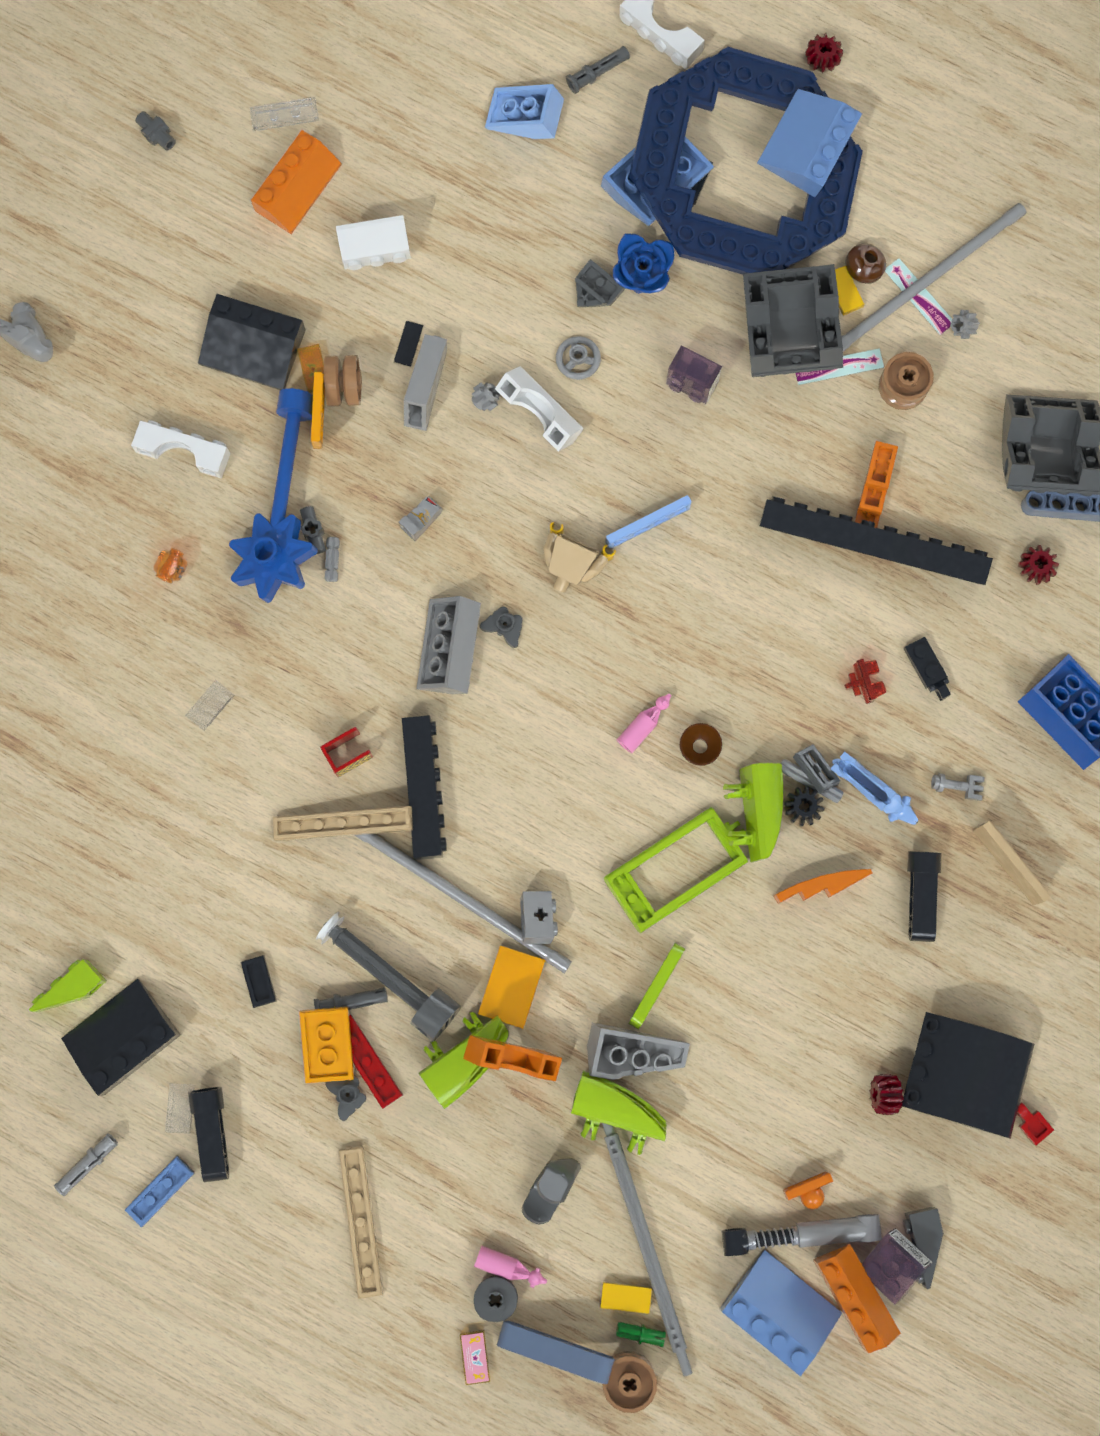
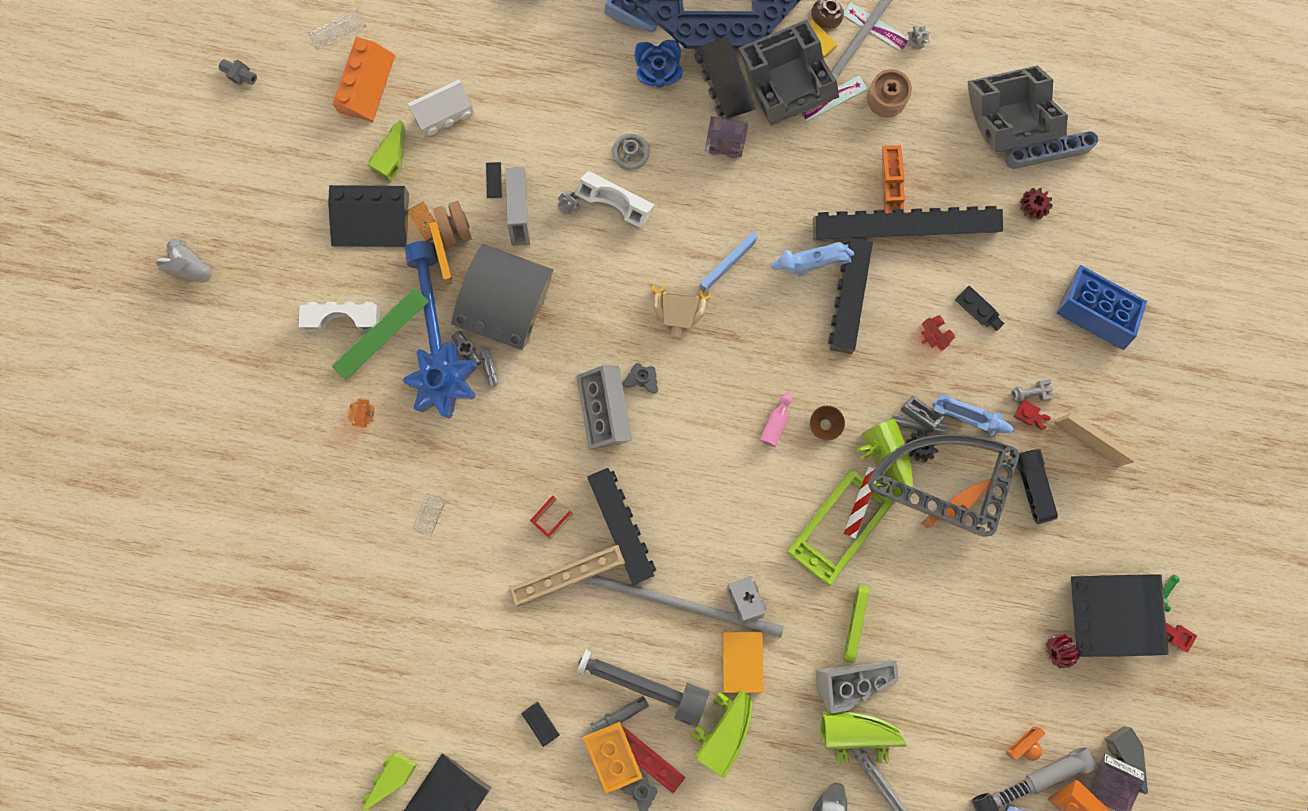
camera: 25 degrees left, 0 degrees up
(220, 481) = (380, 333): none -> bright green tile
(295, 281) = (389, 155): none -> lime slope
(372, 481) = (501, 296): none -> dark grey slope
(420, 518) = (549, 313): light grey leg -> none
(523, 1059) = (752, 722): orange arch -> none
(596, 287) = (626, 92): dark grey slope -> none
(710, 848) = (860, 506): none -> sticker
(711, 306) = (724, 78): none -> black slope
(747, 548) = (813, 259): none -> light blue animal
(779, 605) = (850, 297): none -> black brick
(800, 880) = (985, 517): none -> dark grey beam
(945, 809) = (1029, 414): none -> red plate
(1037, 1067) = (1173, 580): none -> green piece

